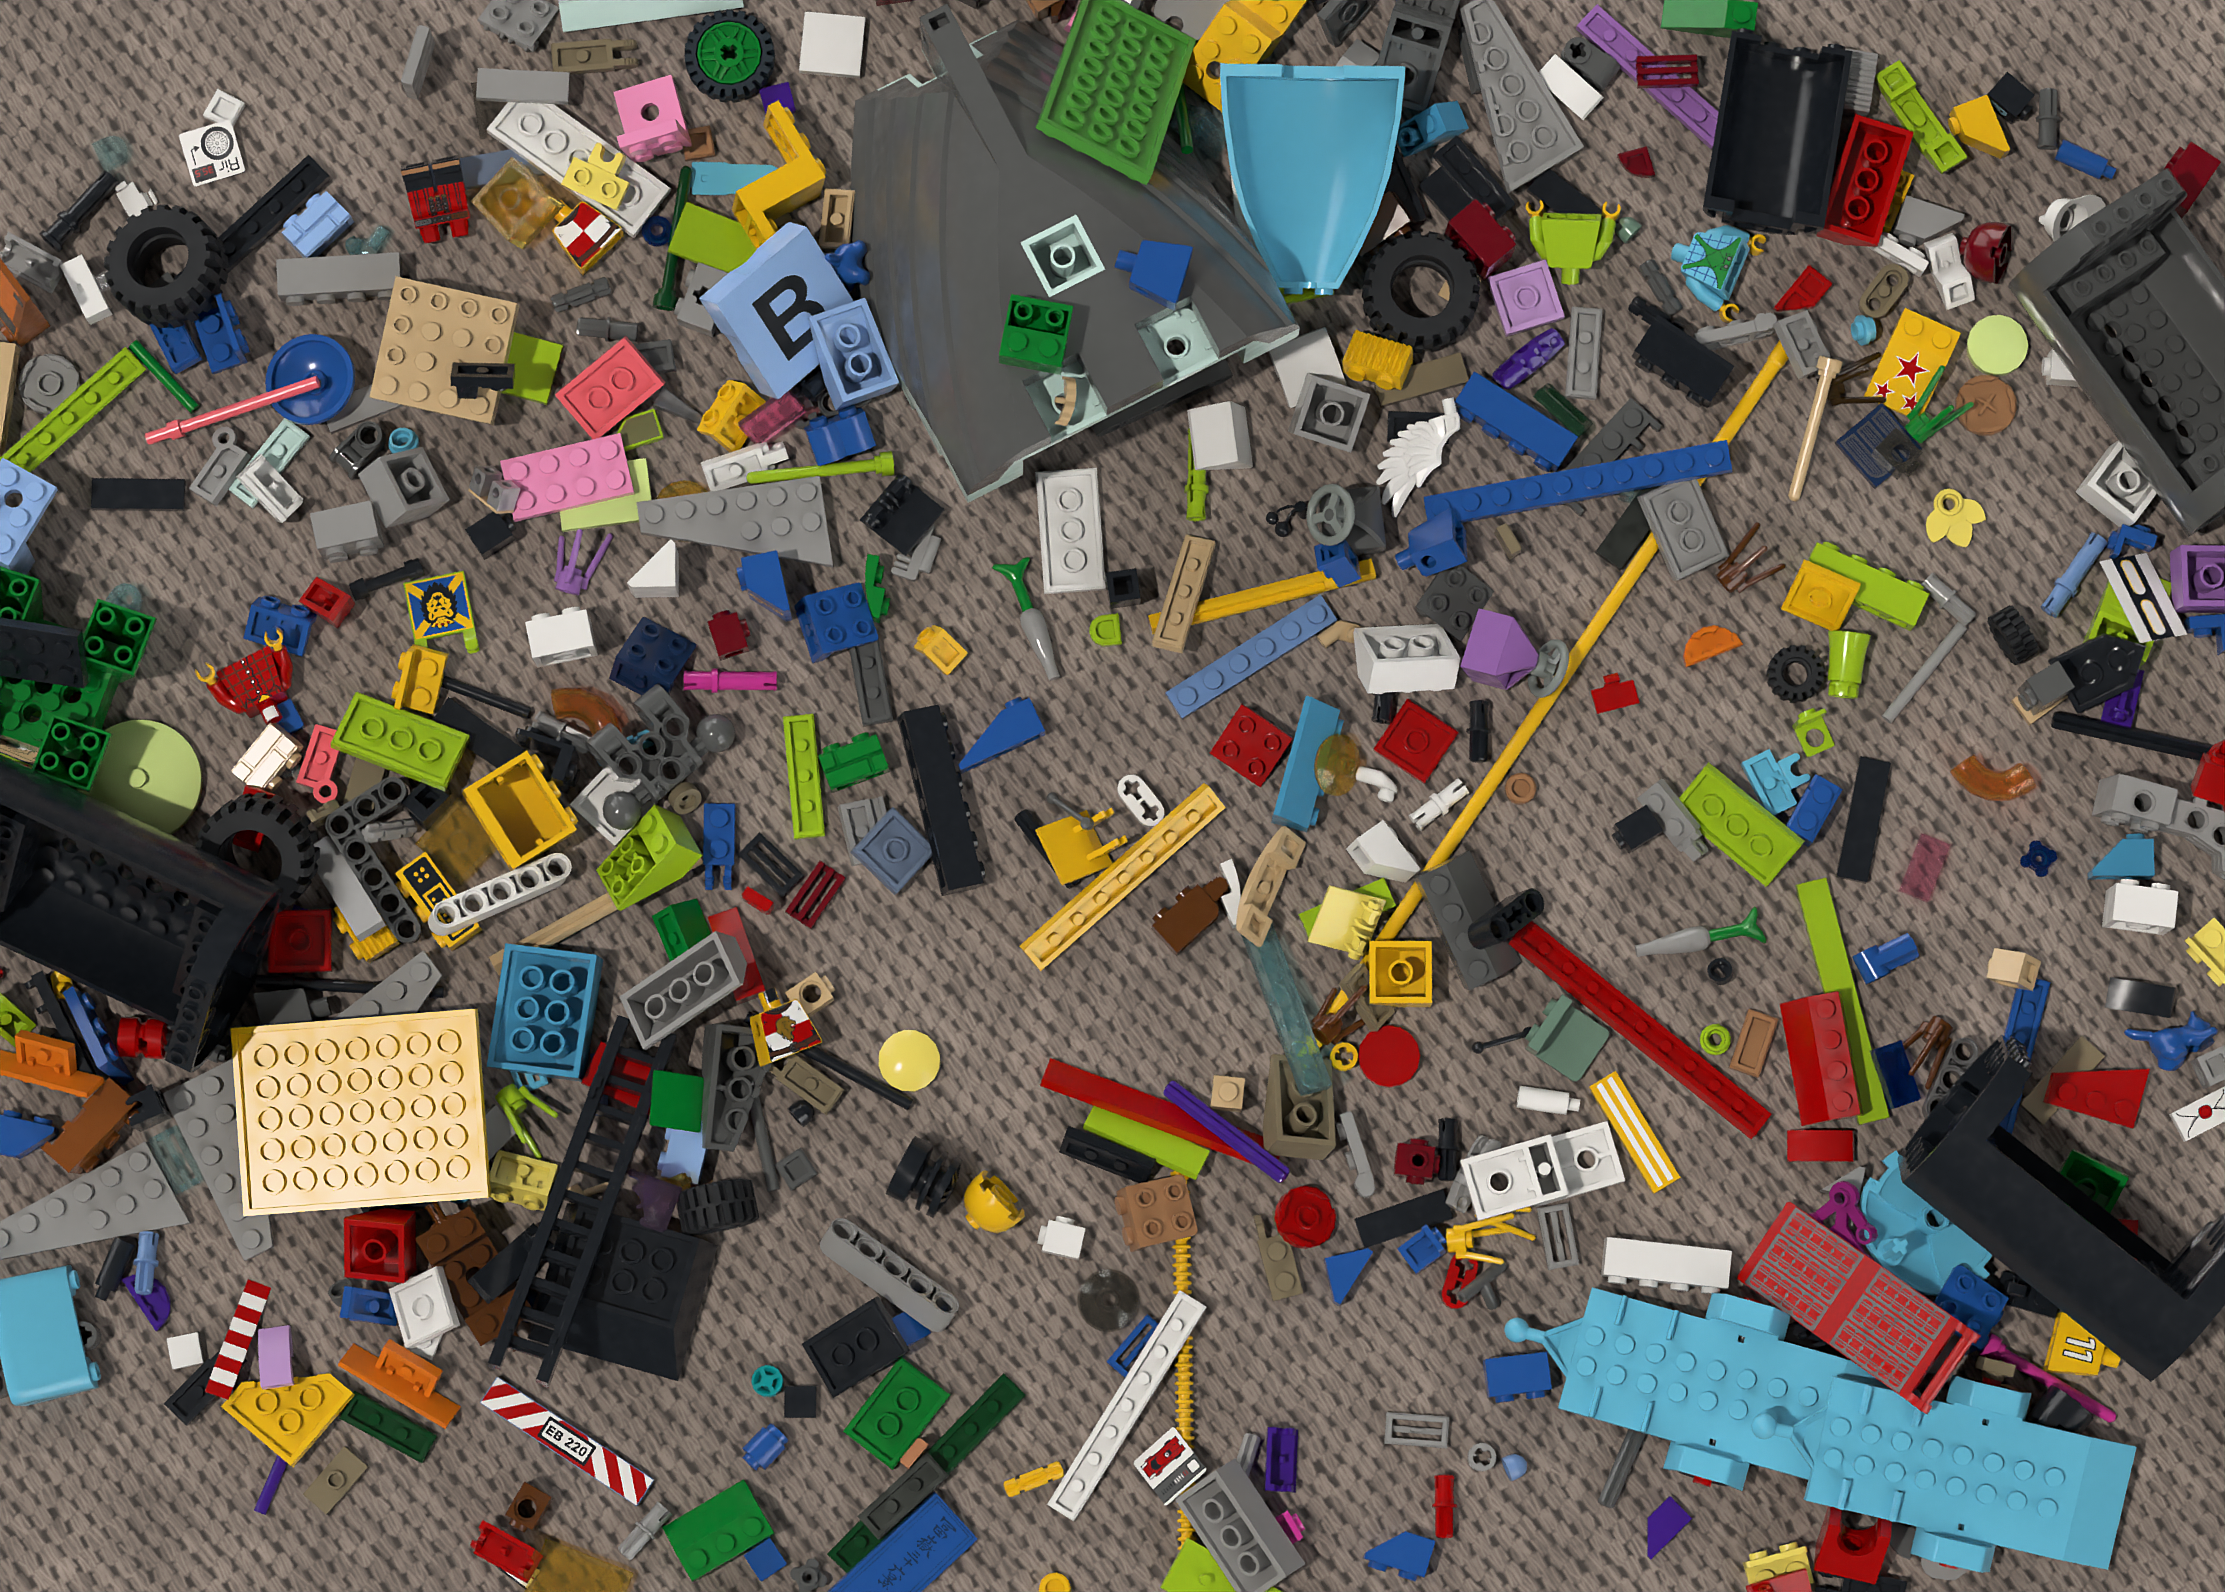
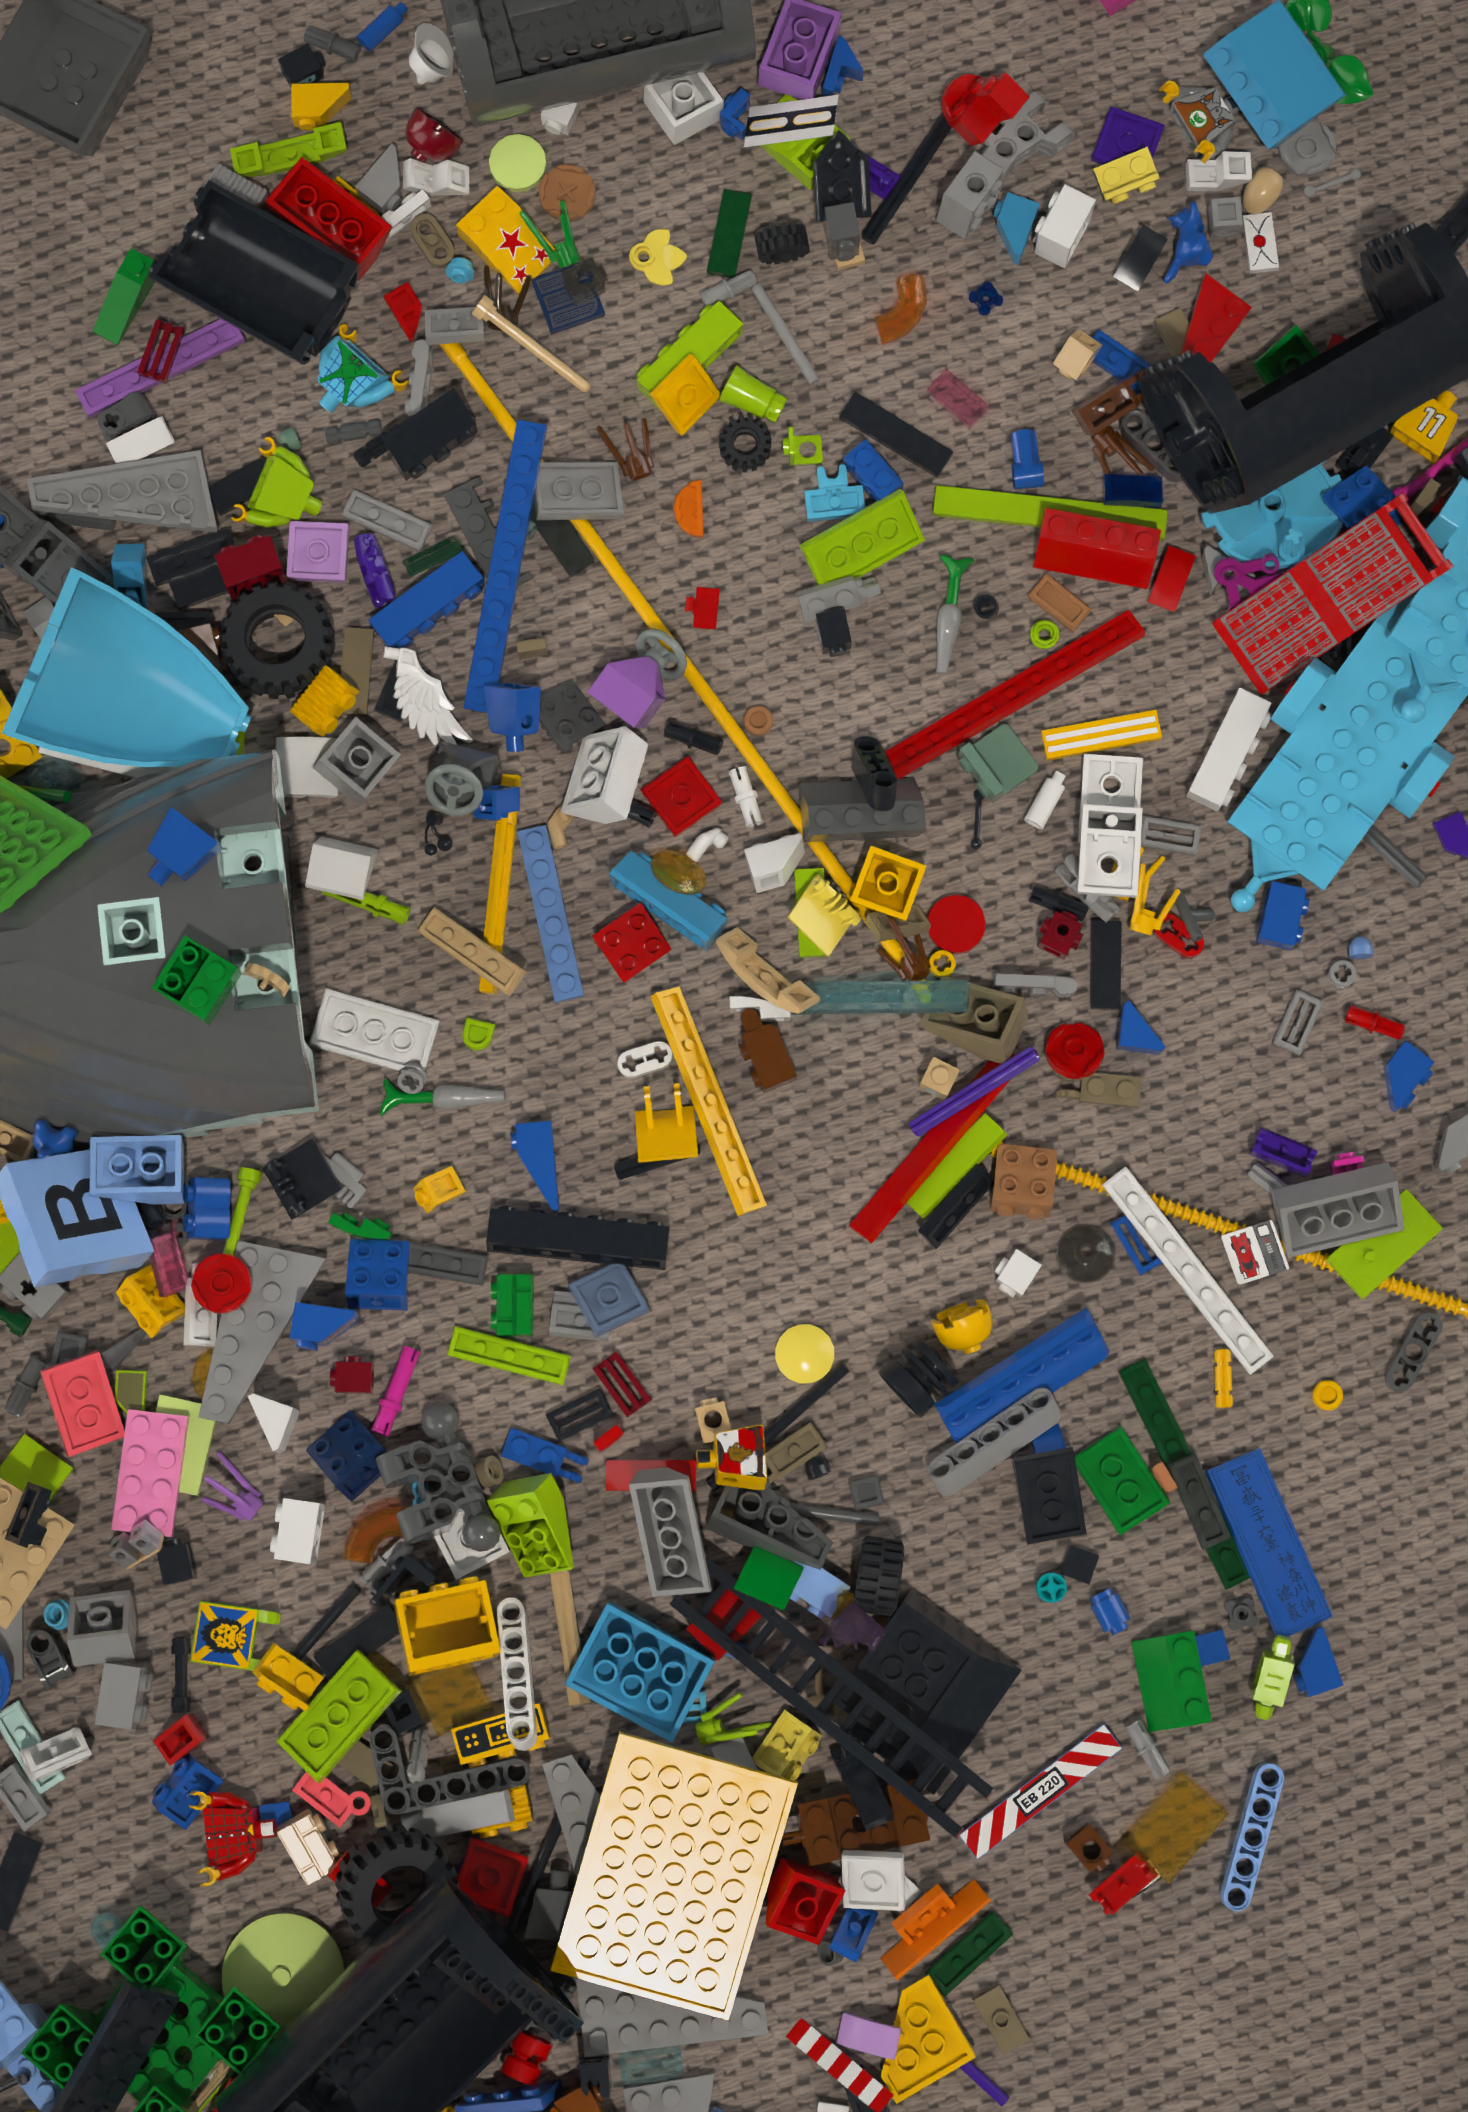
camera: 65 degrees left, 0 degrees up
(681, 927) = (610, 1517): green panel -> none
(771, 475) = (221, 1283): none -> red tile
(983, 1295) = (1044, 1363): none -> blue plate
(1045, 584) = (416, 1072): none -> light grey bush
(1085, 822) = (649, 1114): dark grey hinge -> none
(1123, 588) = (446, 1003): black brick -> none
(1423, 1248) = (1140, 956): blue bracket -> none
(1637, 162) = (232, 409): dark red tile -> none
(1972, 1018) = (1108, 404): none -> reddish brown hinge
(2006, 580) = (729, 233): none -> dark green tile
(2076, 571) = (754, 183): medium blue pin -> none

